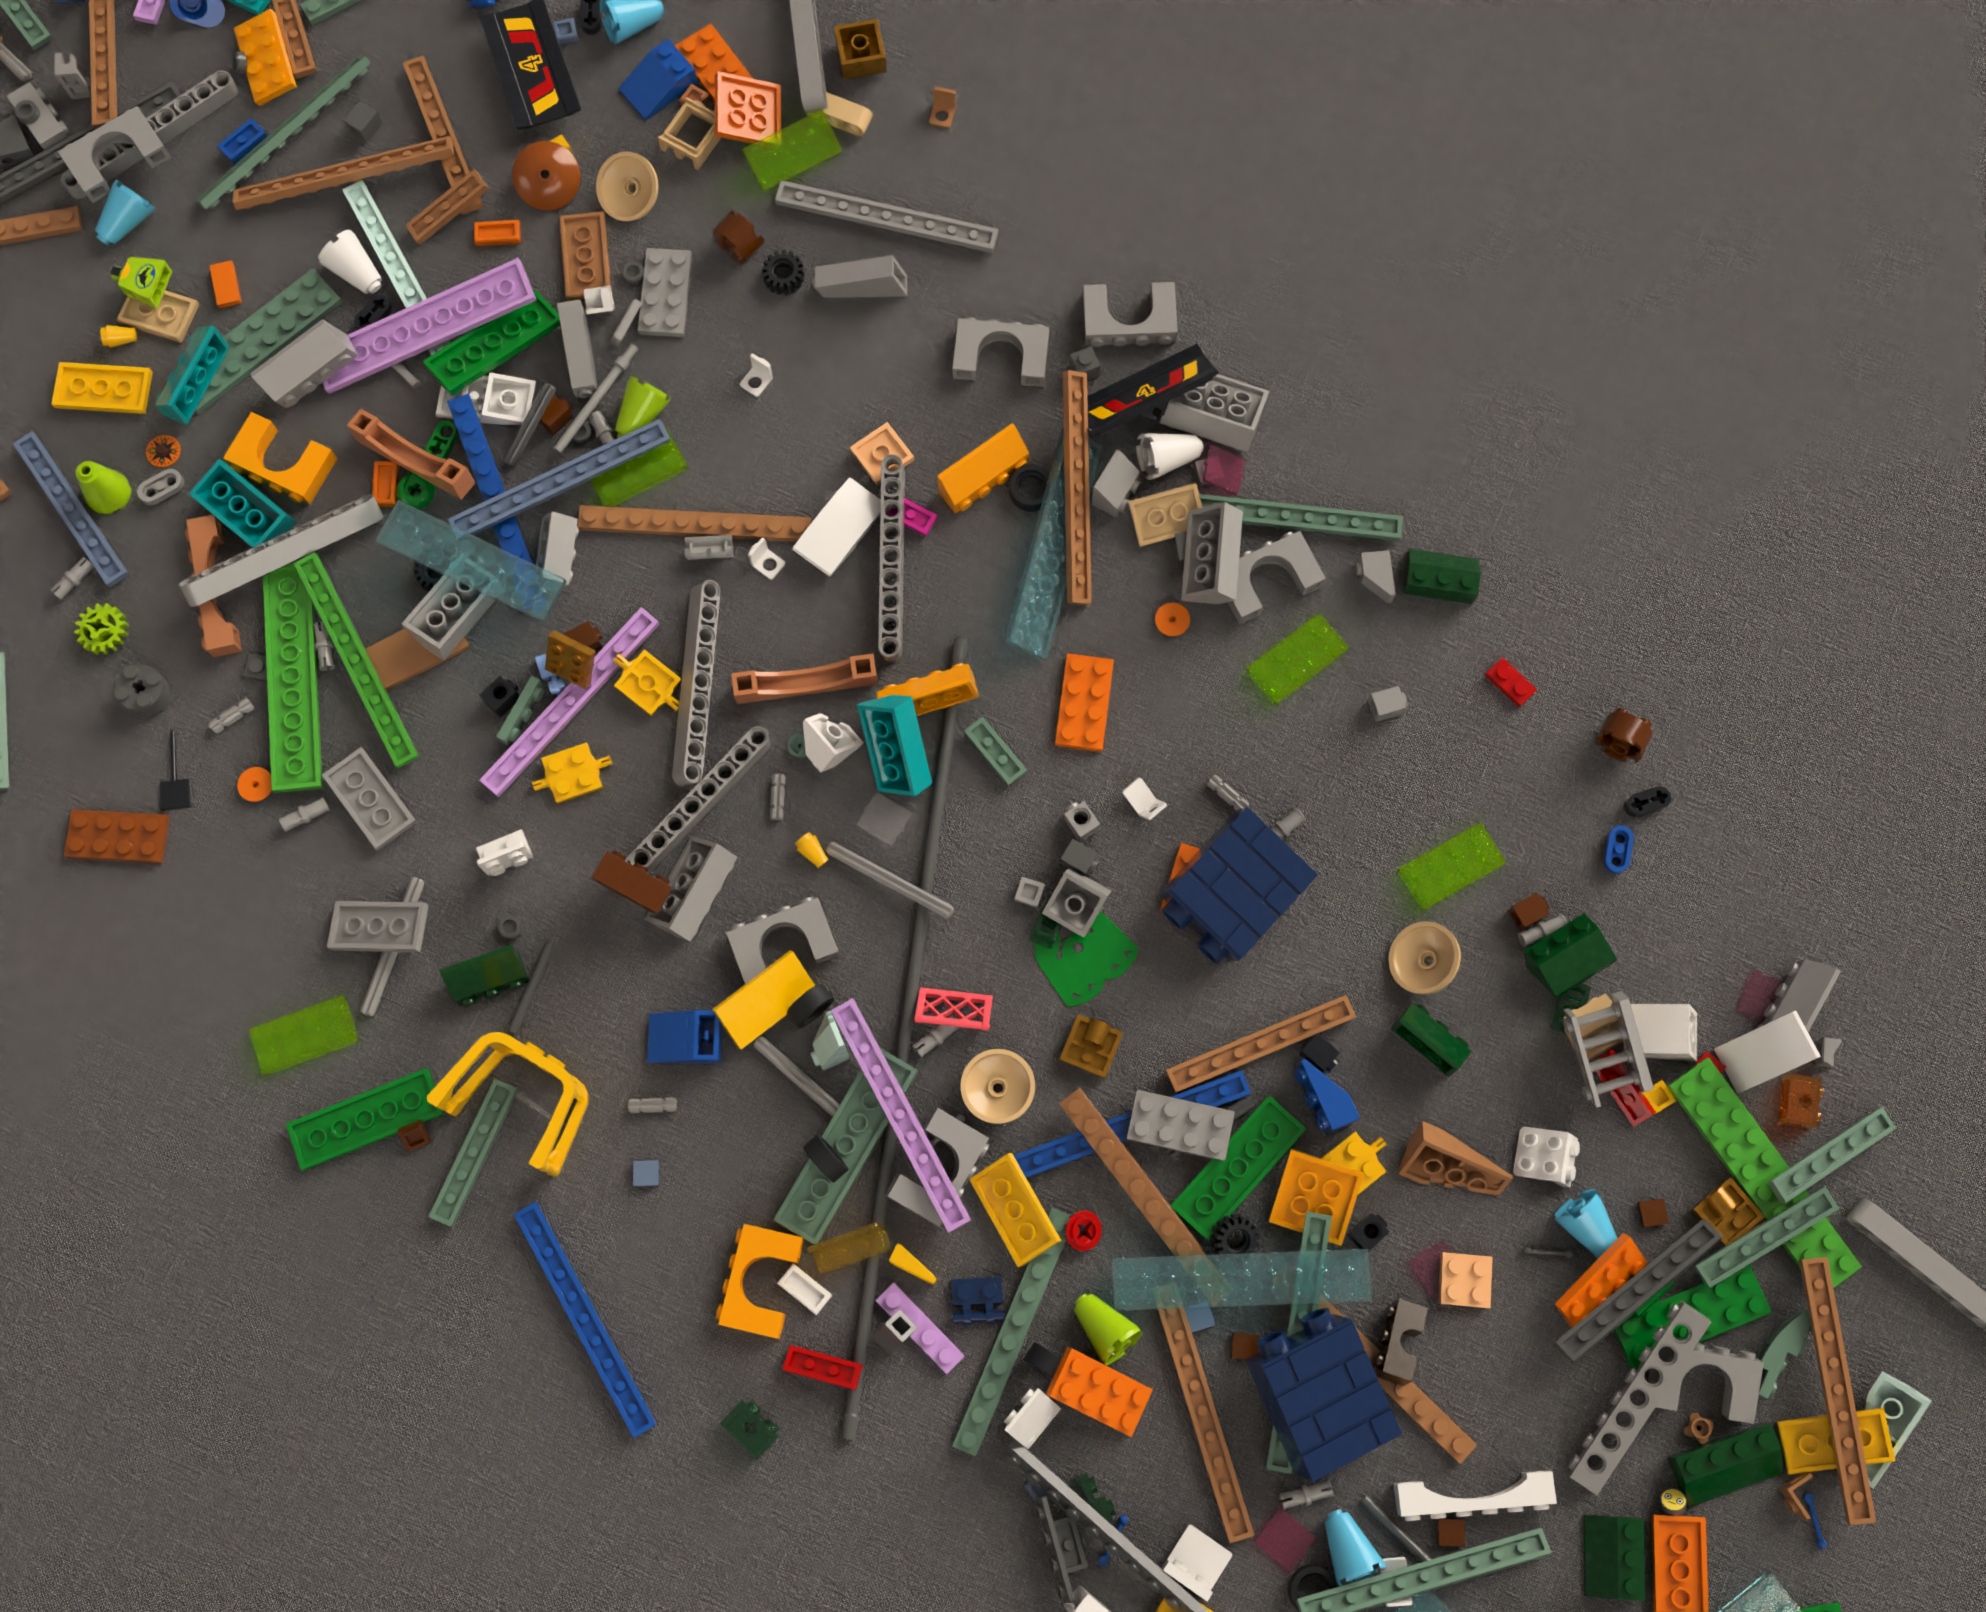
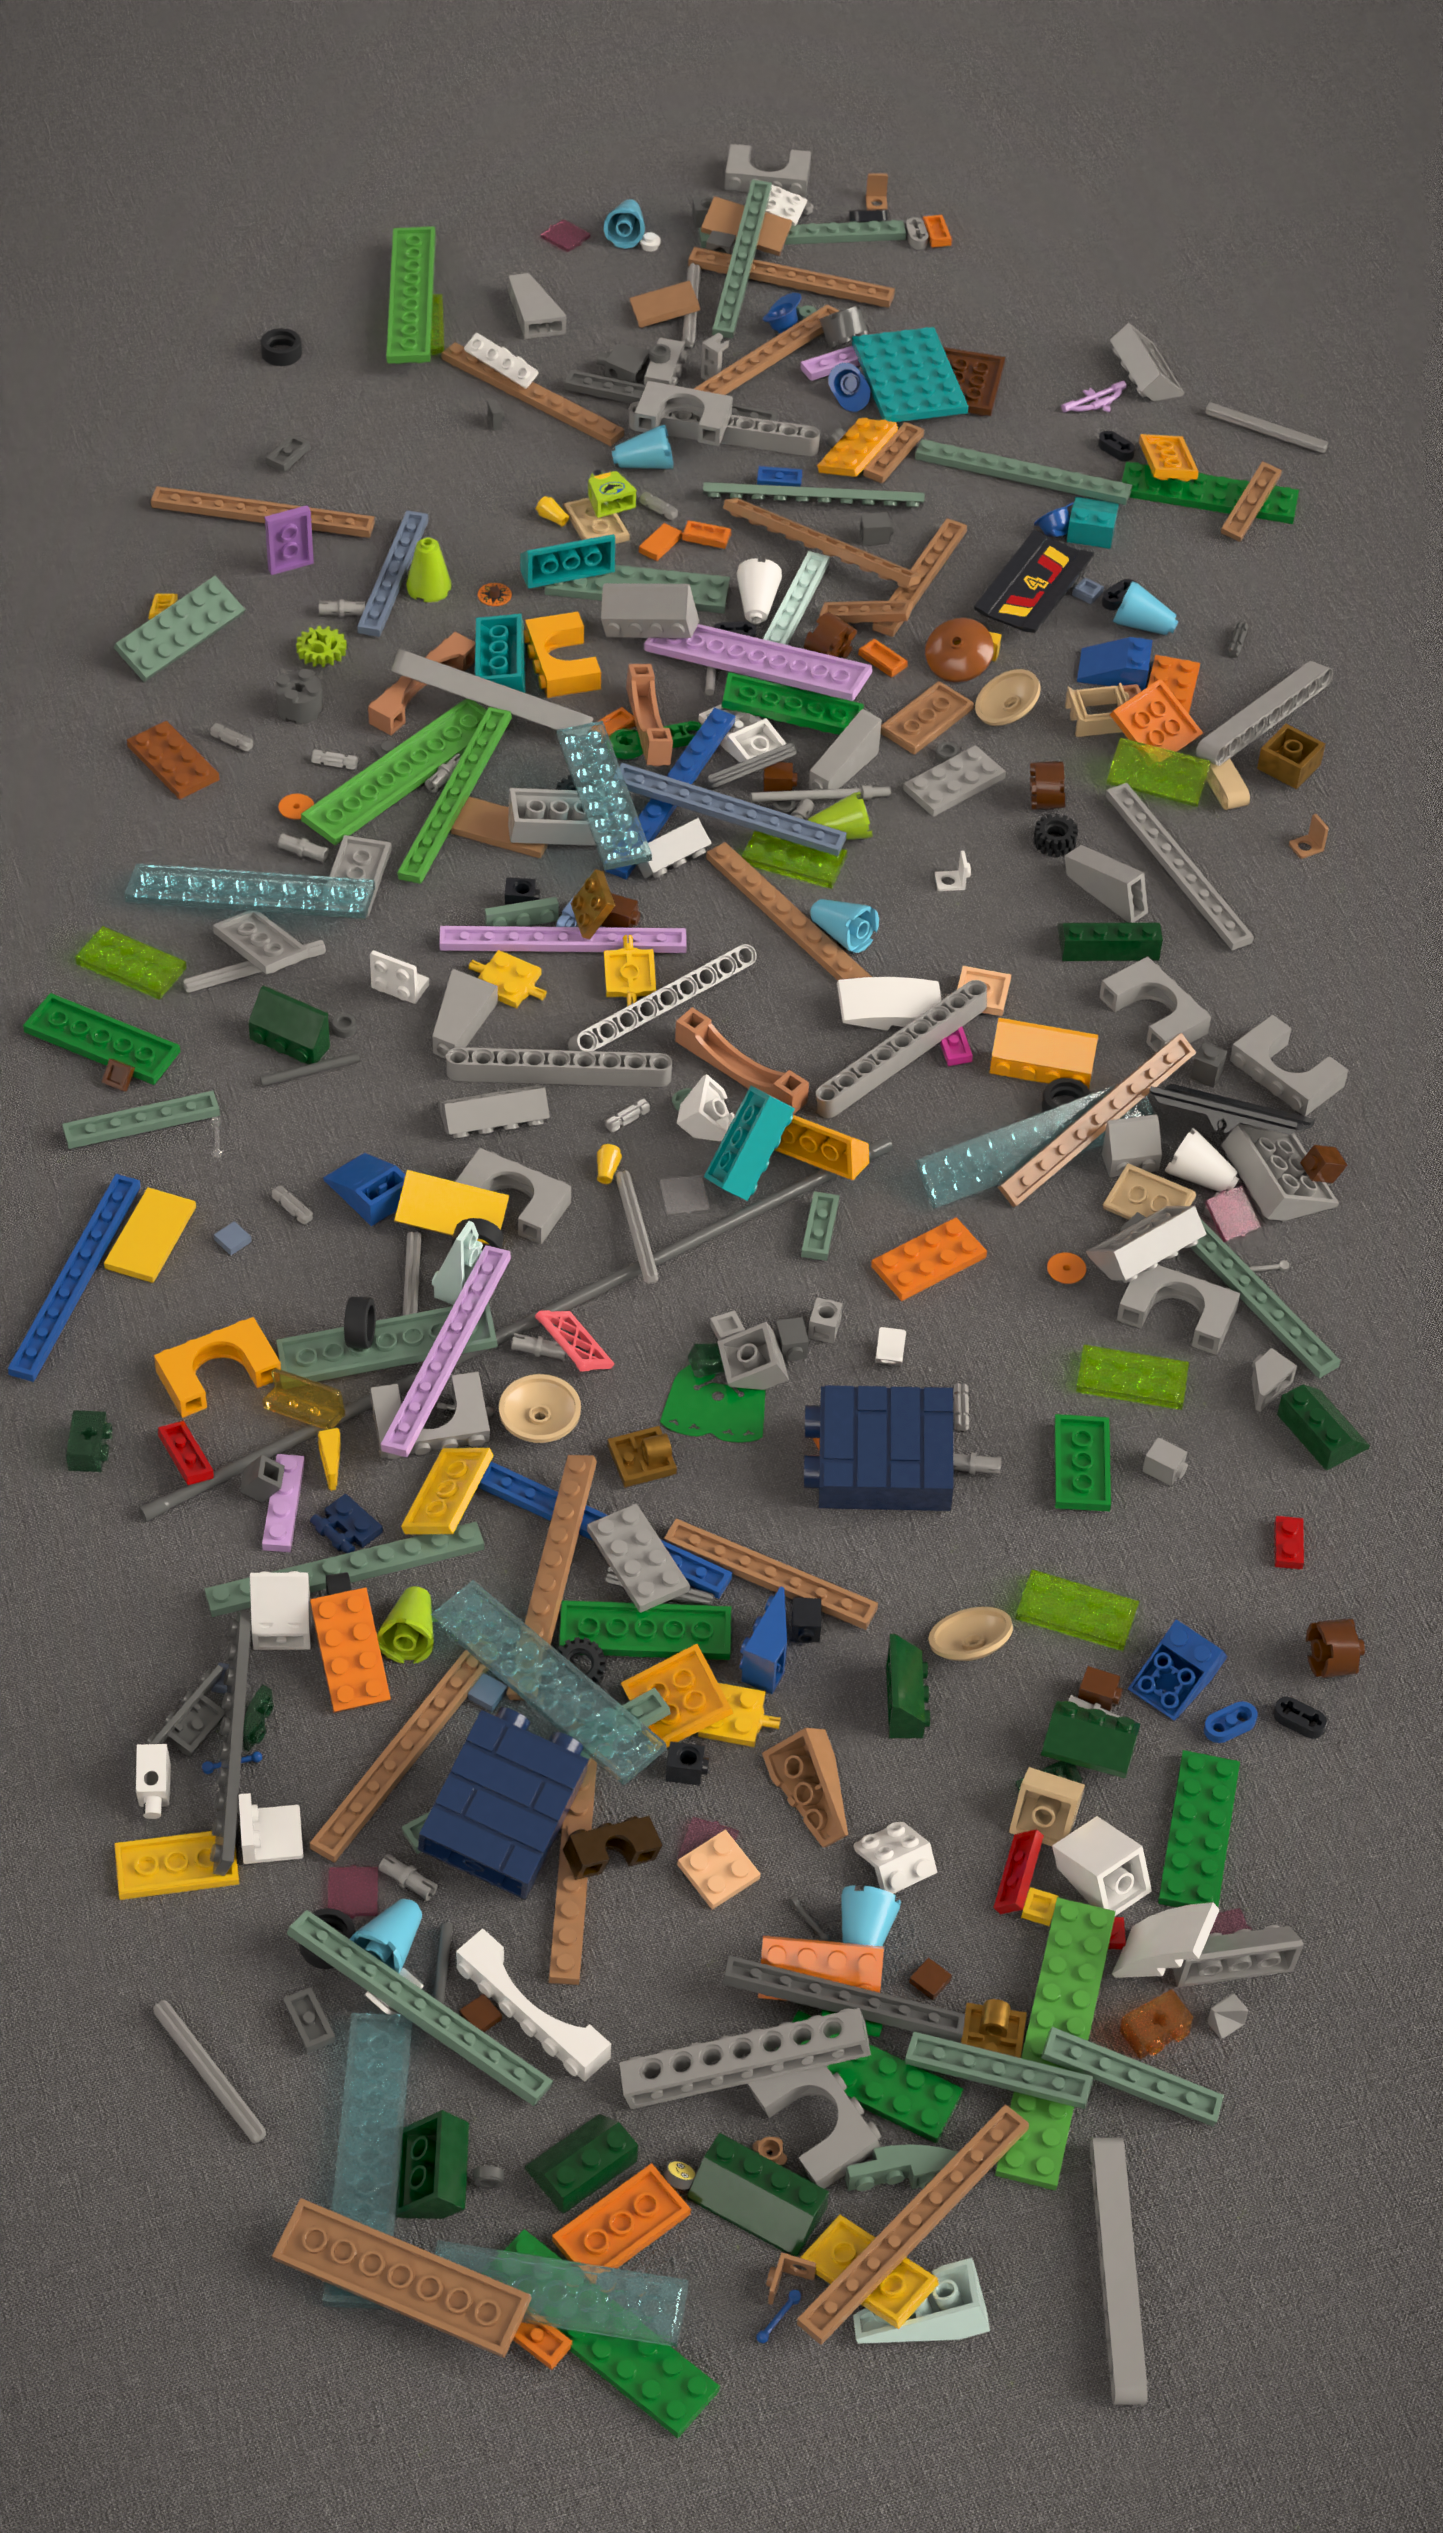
camera: 45 degrees right, 25 degrees down
(102, 388) = (502, 528): yellow plate -> none
(134, 773) = (231, 737): none -> light grey axle
(161, 486) = (464, 607): light grey plate -> none
(176, 792) = (242, 770): black piece -> none
(185, 252) = (658, 505): none -> light grey axle
(251, 245) = (706, 534): none -> orange plate
(317, 893) = (250, 891): none -> clear light blue plate
(452, 257) = (831, 636): none -> reddish brown brick
(506, 1045) = (246, 1083): yellow windscreen -> none
(576, 830) = (463, 1011): none -> light grey slope
(590, 1231) = (150, 1235): none -> yellow tile
(599, 299) = (901, 745): white panel -> none
(625, 322) = (900, 771): light grey tile -> none
(632, 881) = (456, 1052): reddish brown brick -> none
(709, 547) = (780, 938): light grey hinge -> none
(737, 492) = (846, 922): none -> medium azure cone
(759, 554) = (811, 971): white bracket -> none
(804, 1289) = (239, 1404): white tile -> none
(911, 324) = (1110, 941): none -> dark green slope
(1093, 1230) = (488, 1546): red gear -> none
(1235, 372) = (1323, 1164): none -> reddish brown brick
(1288, 475) = (1283, 1266): none -> light grey hinge
(1341, 757) = (1082, 1462): none -> green plate
(1554, 846) = (1177, 1670): none -> blue slope
(1632, 1053) = (1050, 1836): light grey fence -> none
(1680, 944) = (1199, 1830): none -> green plate

